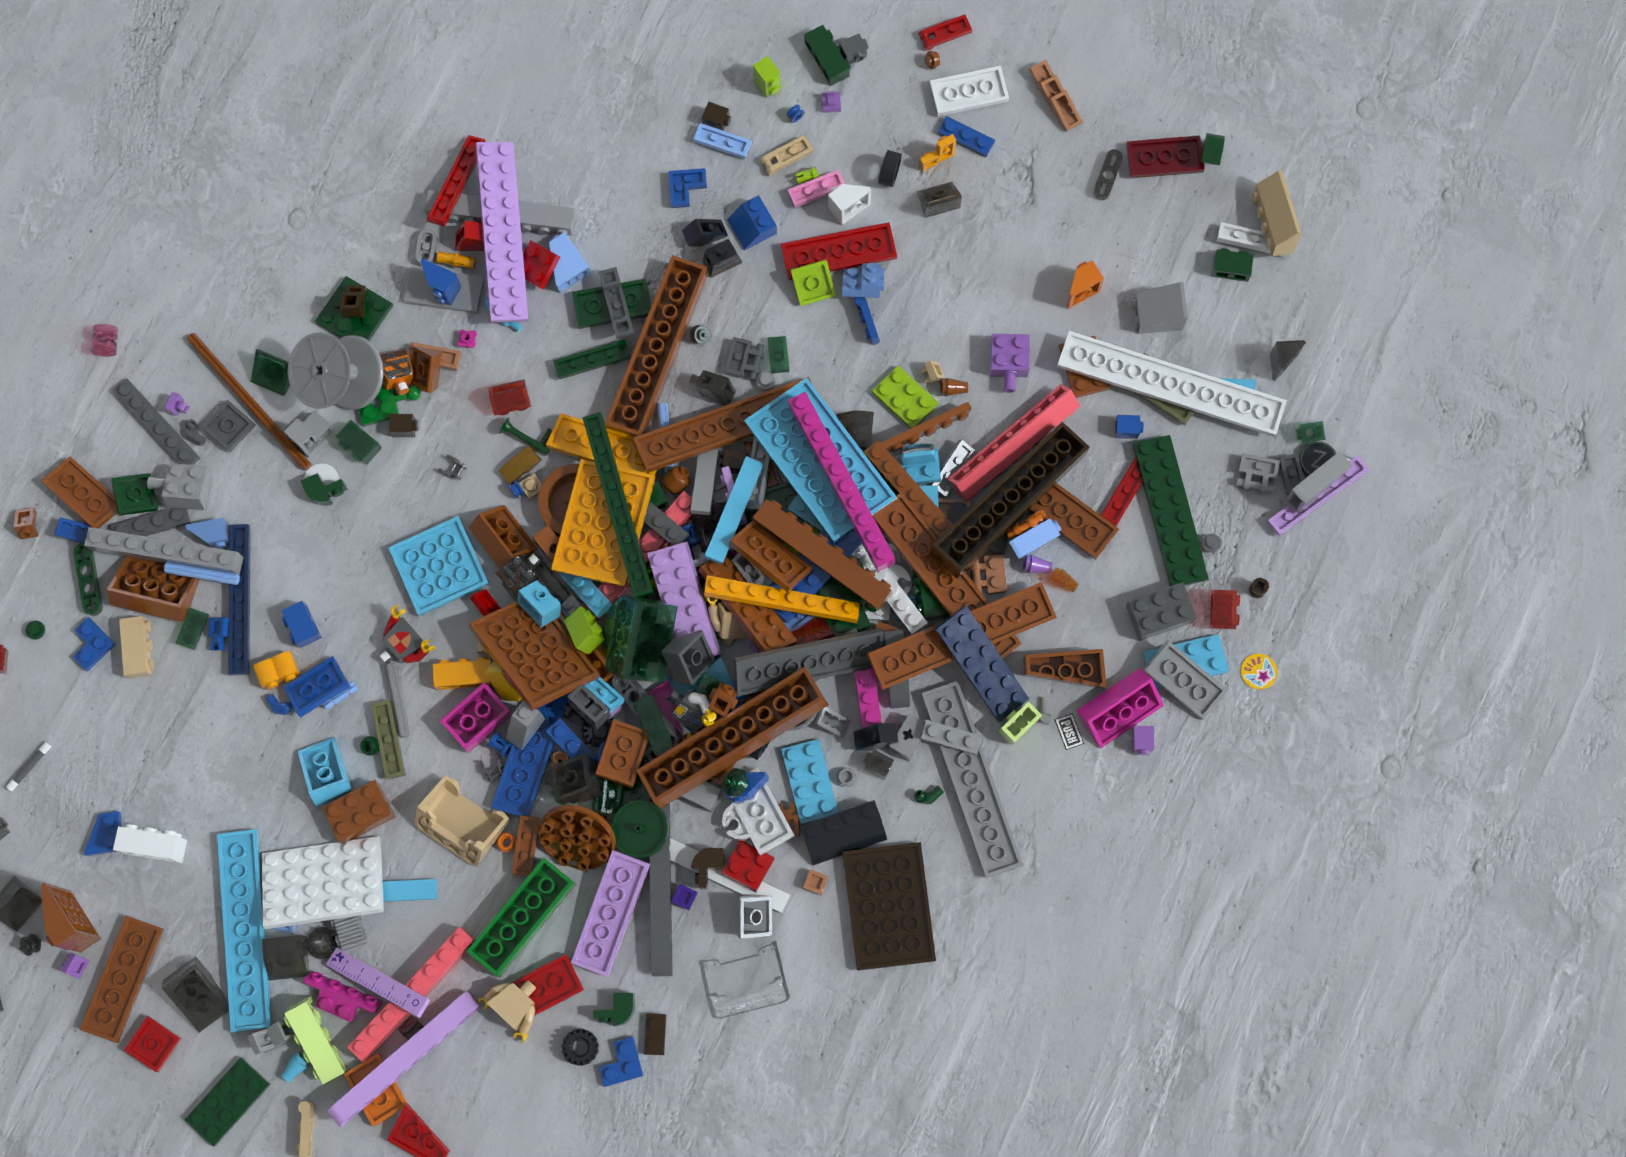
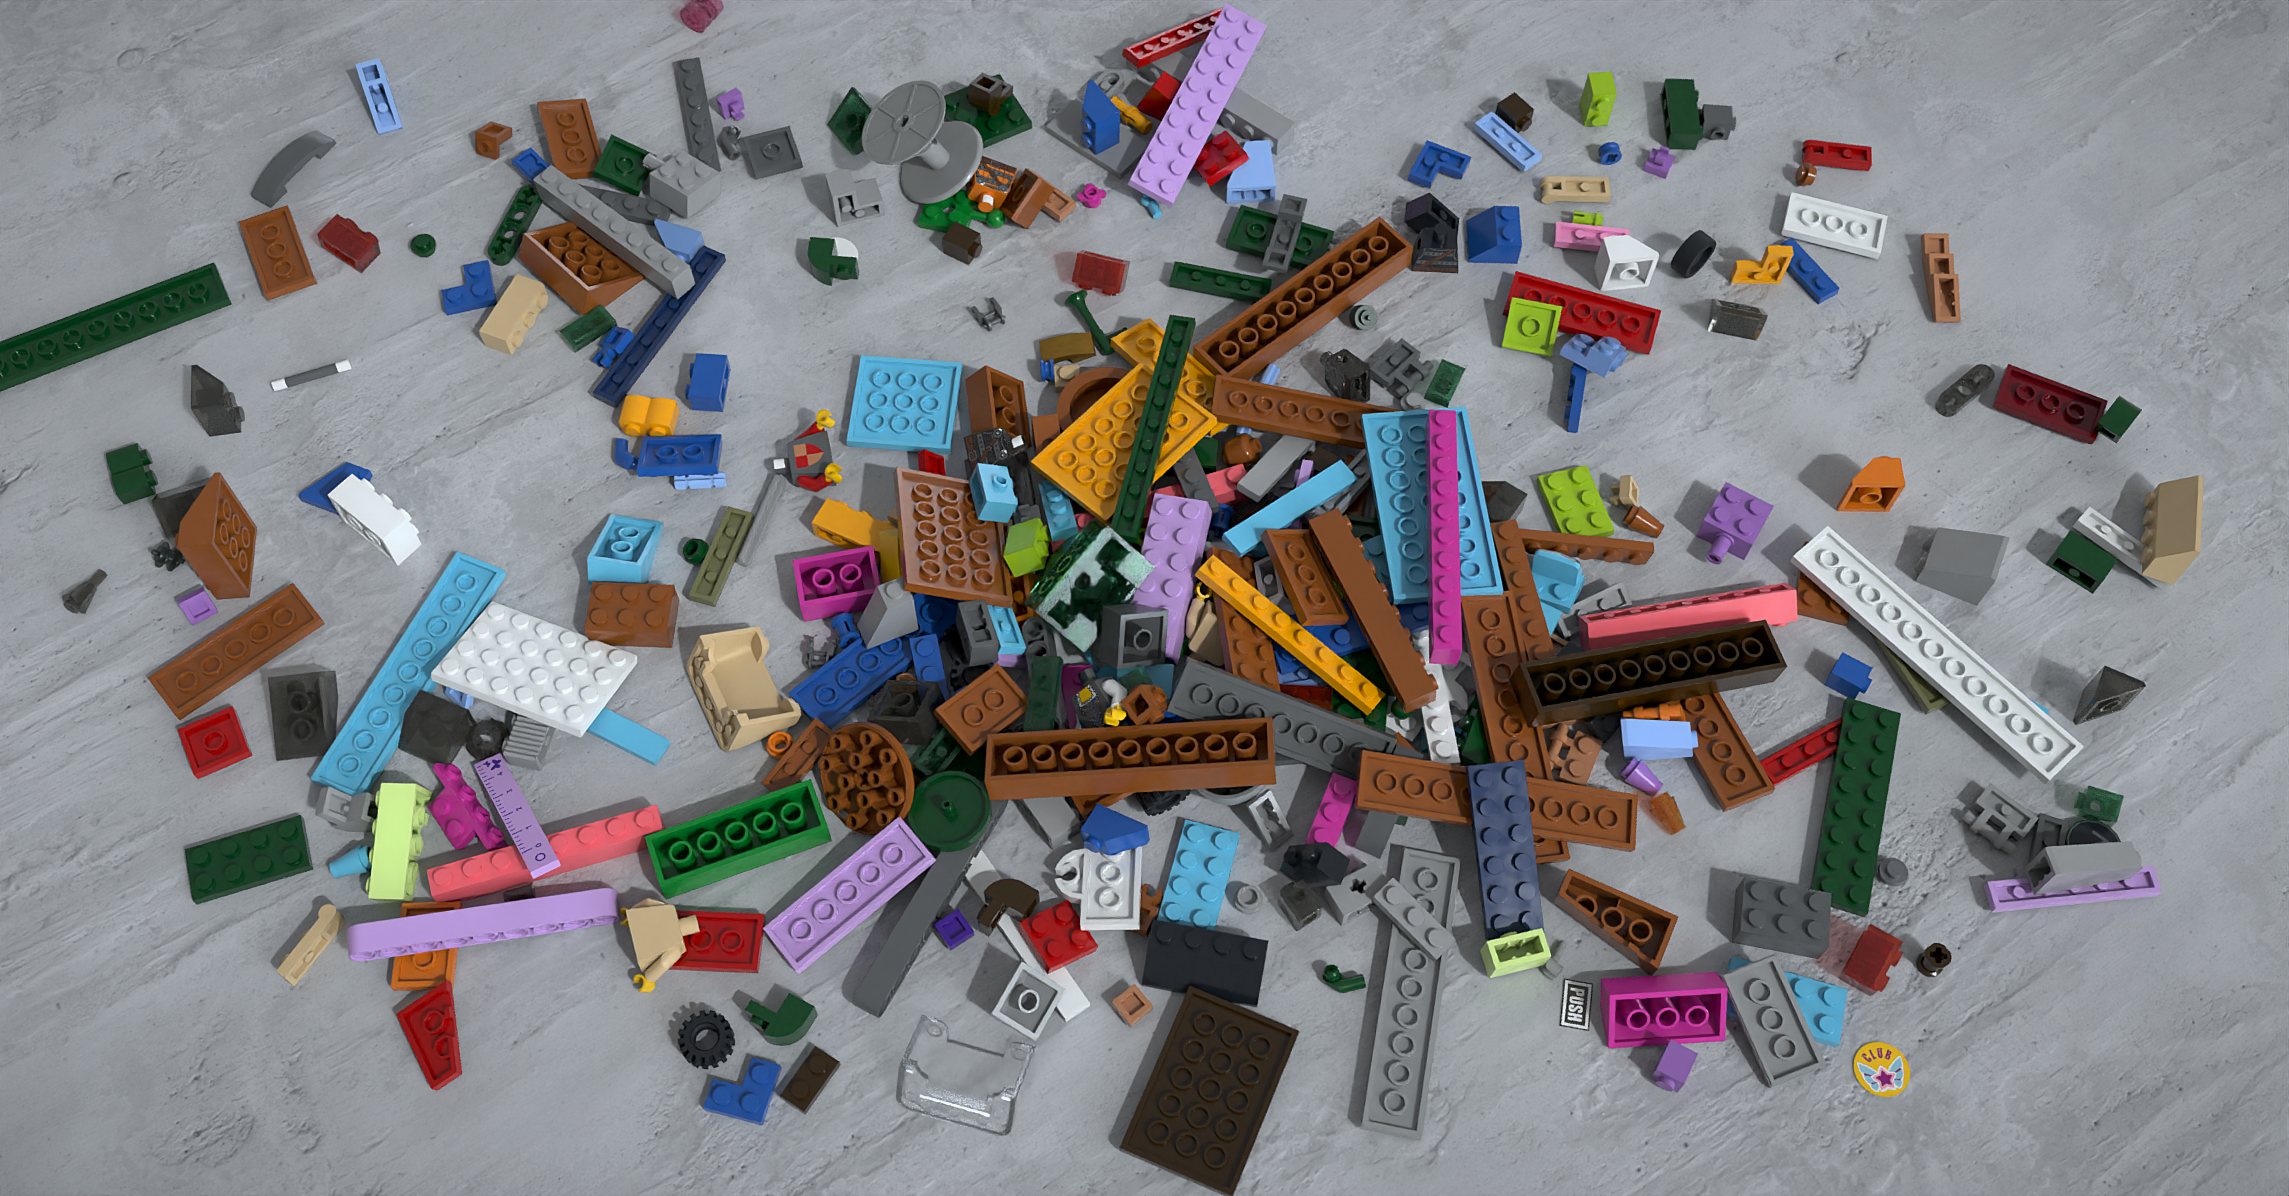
camera: 25 degrees right, 15 degrees down
(201, 573) = (638, 275): light blue axle -> none
(251, 404) = (811, 143): dark orange axle -> none
(358, 442) = (901, 236): clear green brick -> none
(735, 783) = (1102, 815): clear green plate -> none

